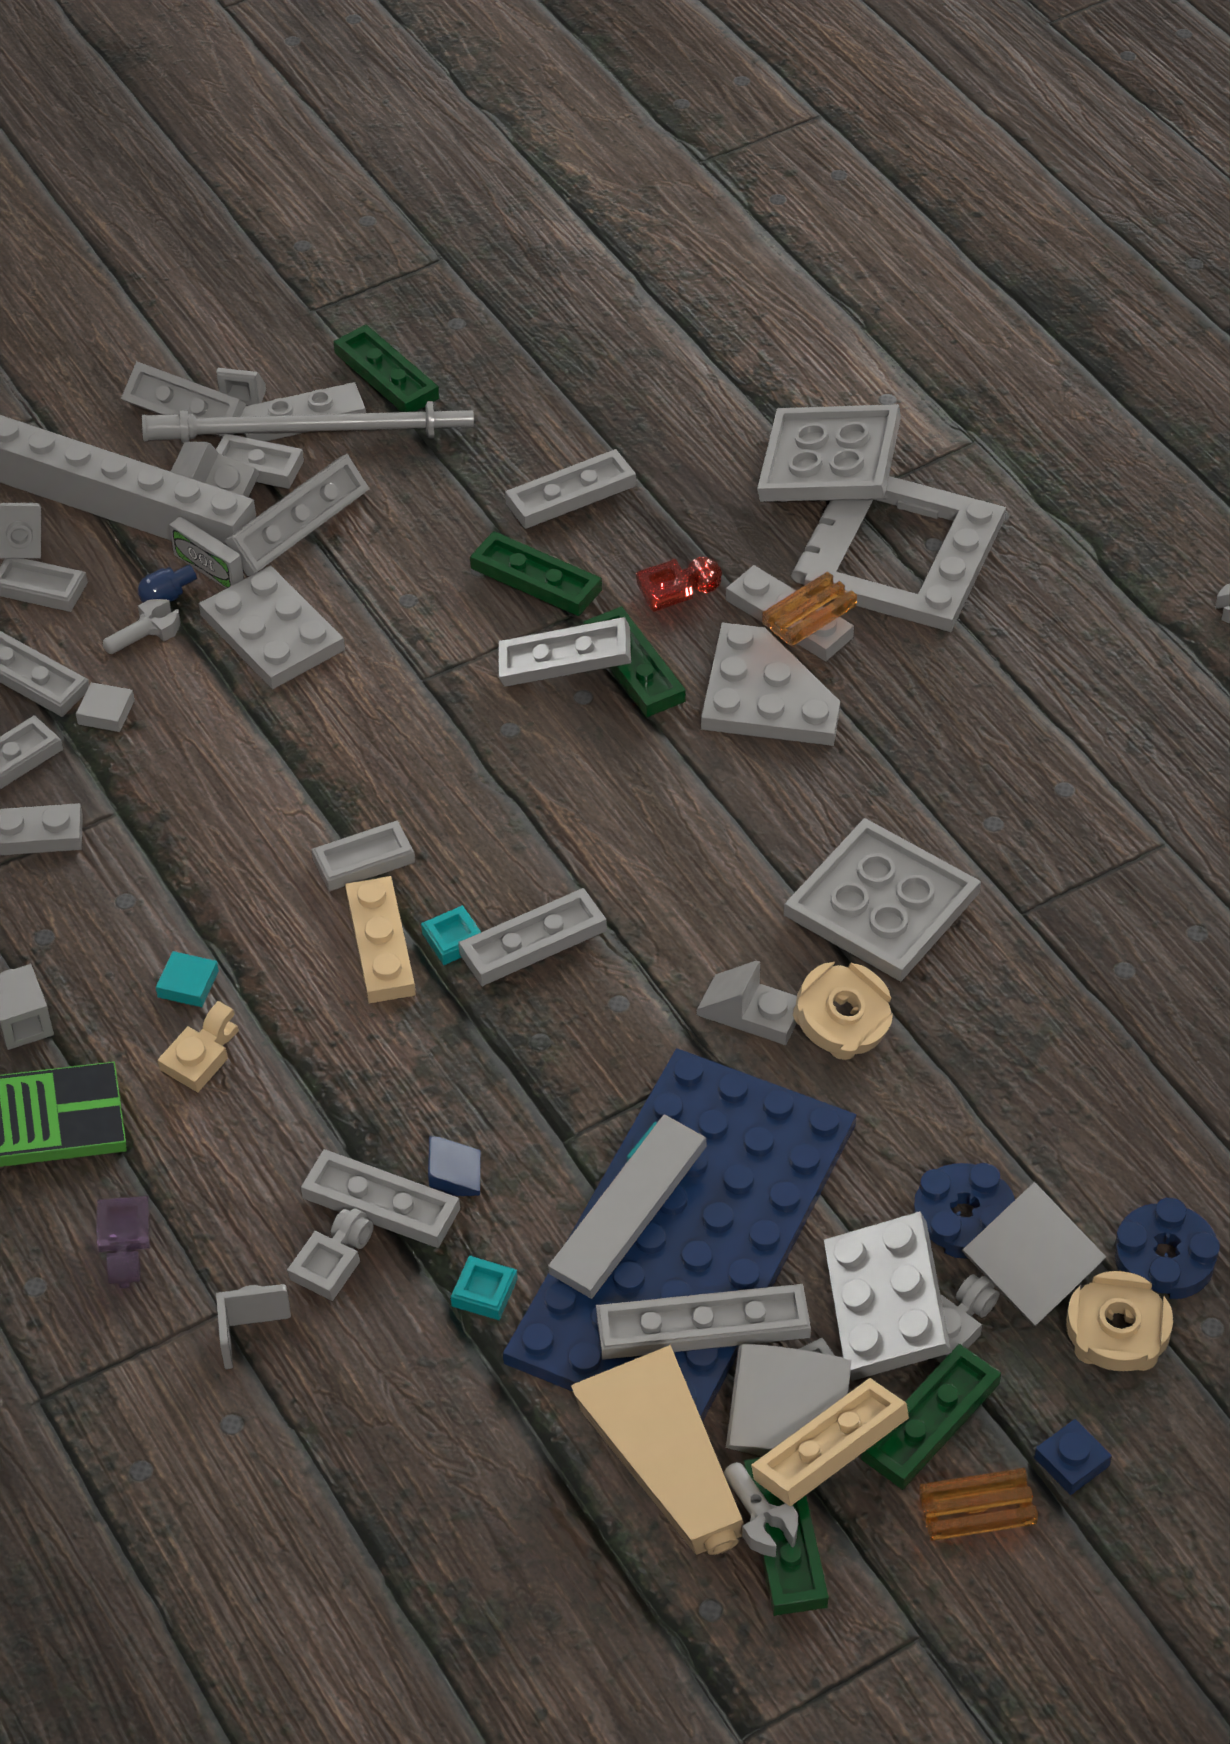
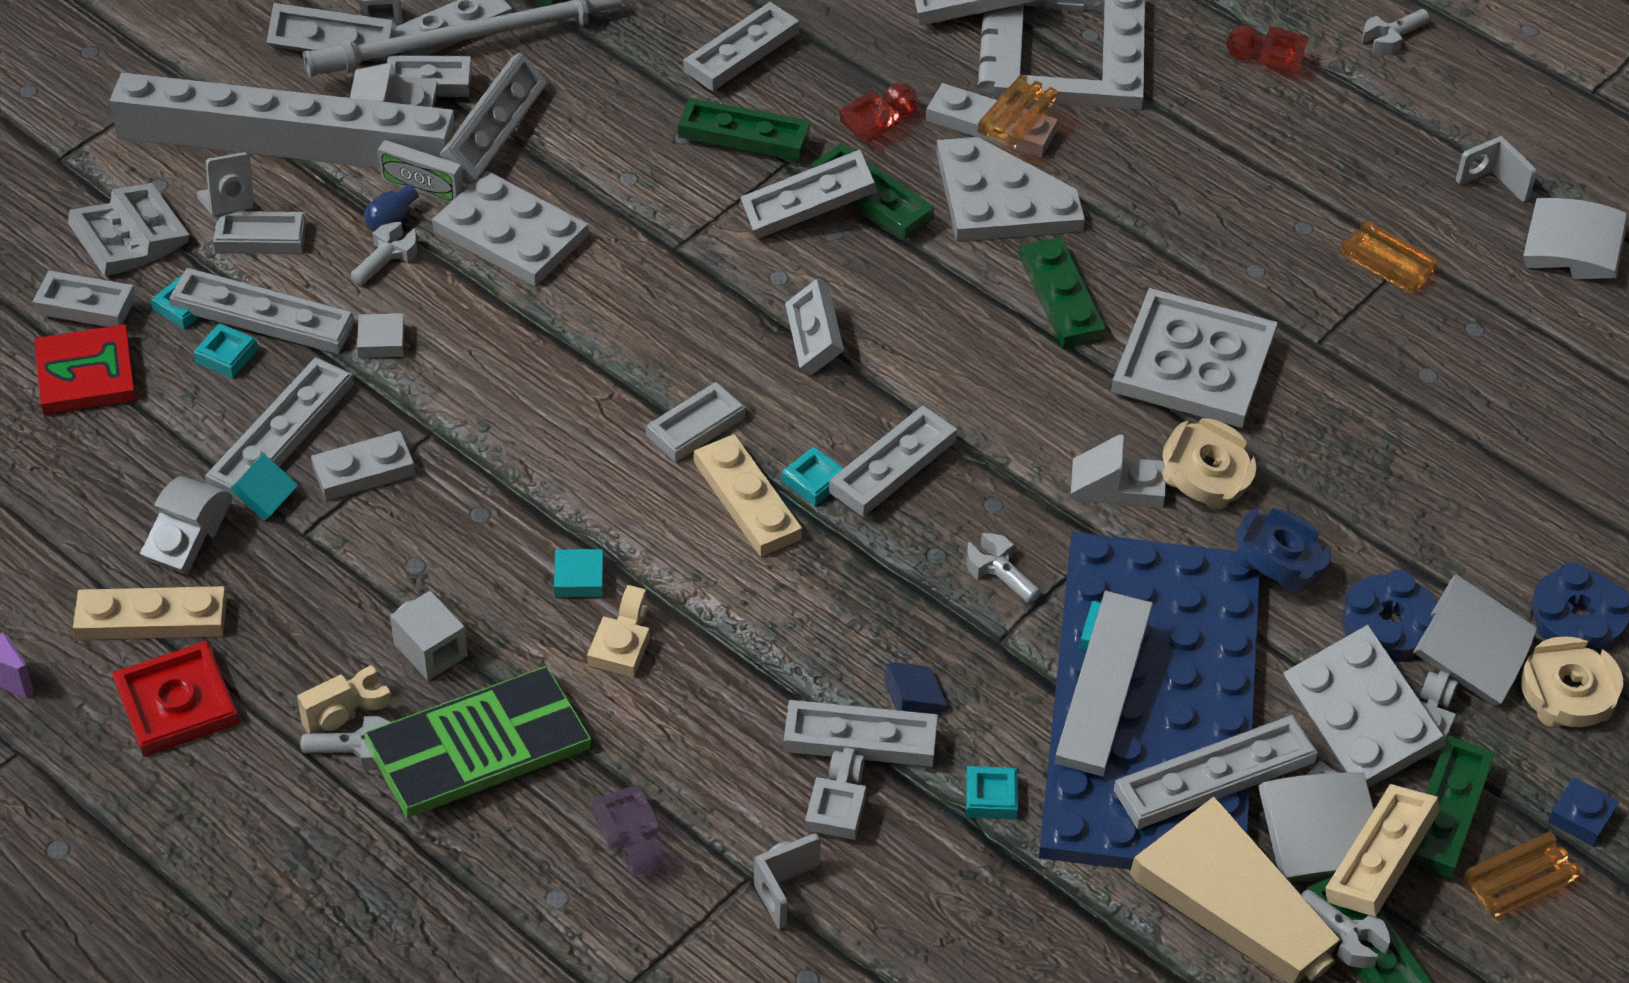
camera: 20 degrees left, 0 degrees up
(514, 786) = (814, 327): none -> light grey plate
(594, 1066) = (999, 565): none -> light grey bar
(780, 804) = (1062, 292): none -> dark green plate
(857, 1123) = (1281, 548): none -> dark blue plate
(1115, 598) = (1278, 49): none -> clear red plate
(1143, 835) = (1392, 252): none -> clear orange tile

